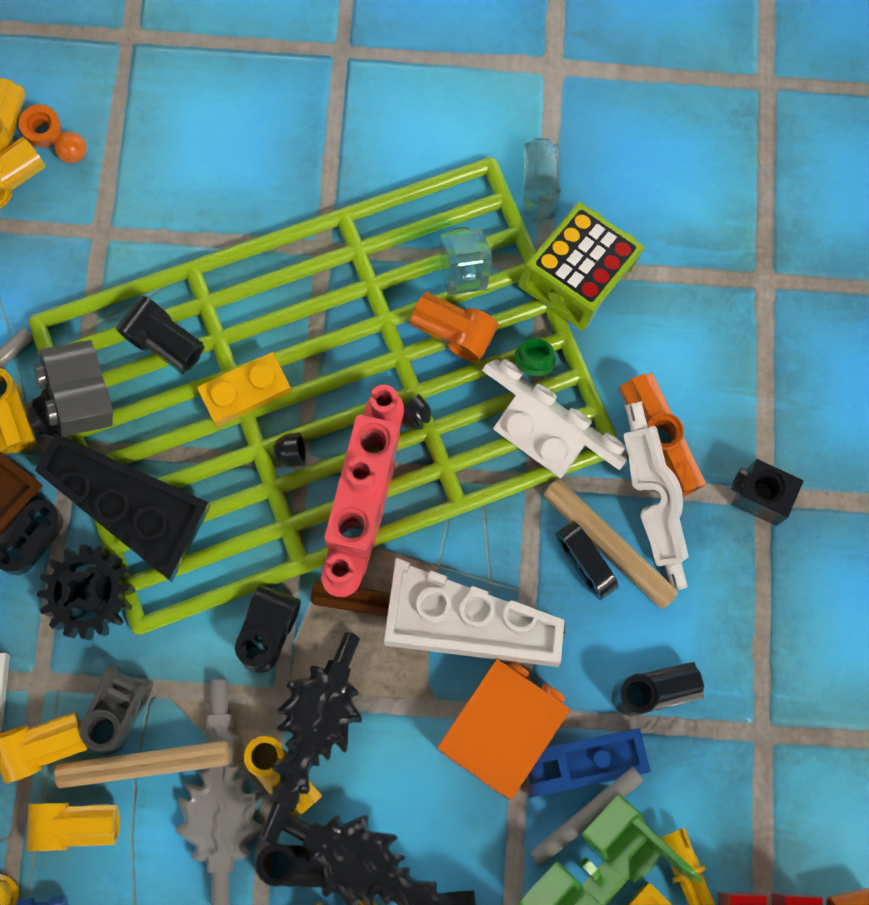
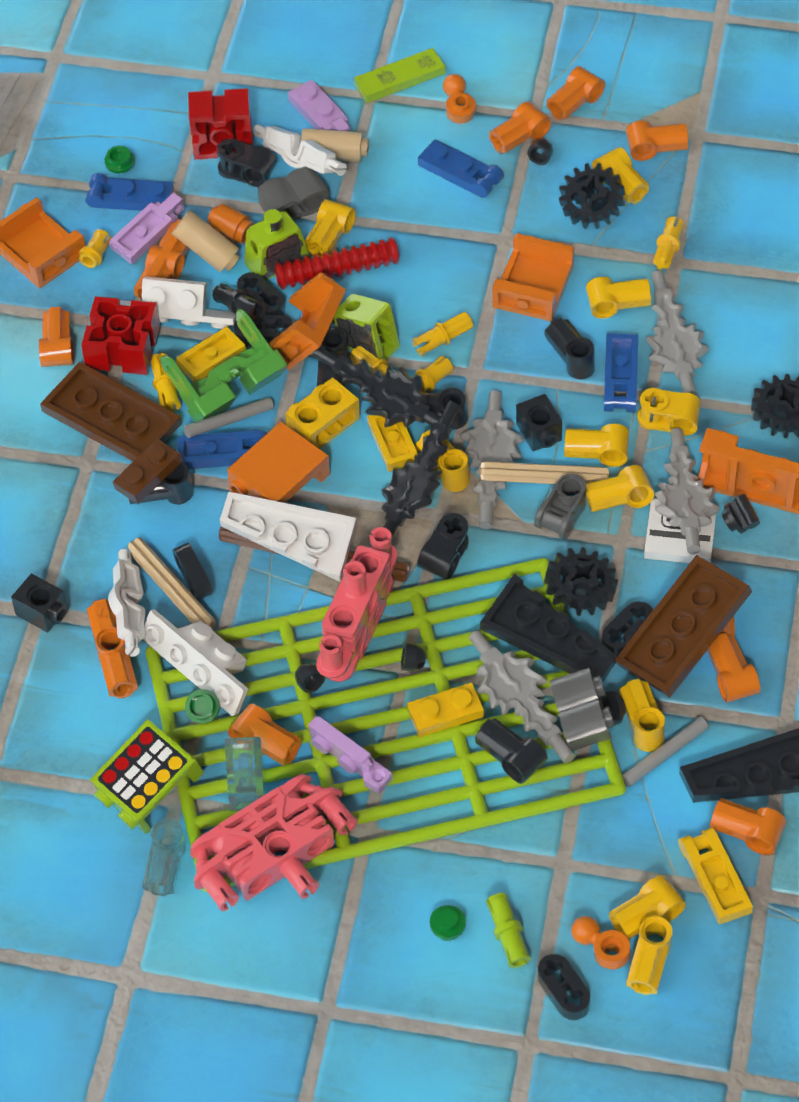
camera: 165 degrees left, 20 degrees down
(99, 84) = (569, 982): none -> black beam
(154, 138) = (508, 930): none -> lime pin
(164, 430) = (514, 684): none -> light grey piece
(172, 858) = (539, 422): none -> black brick
(221, 143) = (447, 922): none -> green plate
(350, 310) = (348, 754): none -> lavender hinge
(352, 794) = (393, 442): none -> yellow plate
(414, 215) = (270, 824): none -> coral piece
(449, 827) = (324, 413): none -> yellow brick
(676, 688) = (147, 471): none -> reddish brown plate
(752, 809) = (109, 412): none -> reddish brown plate

